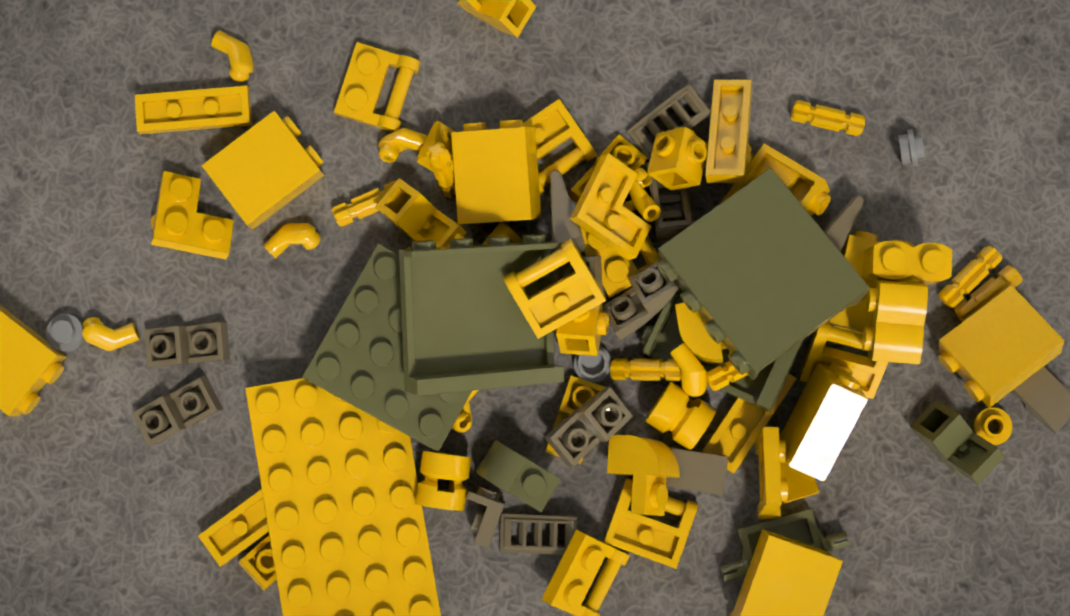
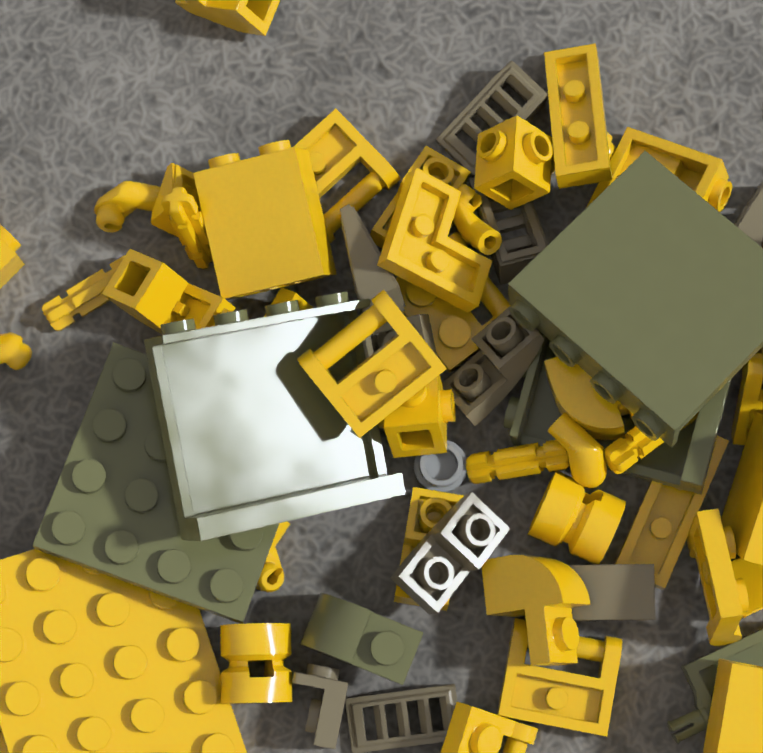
camera: 15 degrees left, 5 degrees down
(365, 82) = (63, 131): yellow plate -> none
(828, 118) = (708, 80): yellow axle -> none

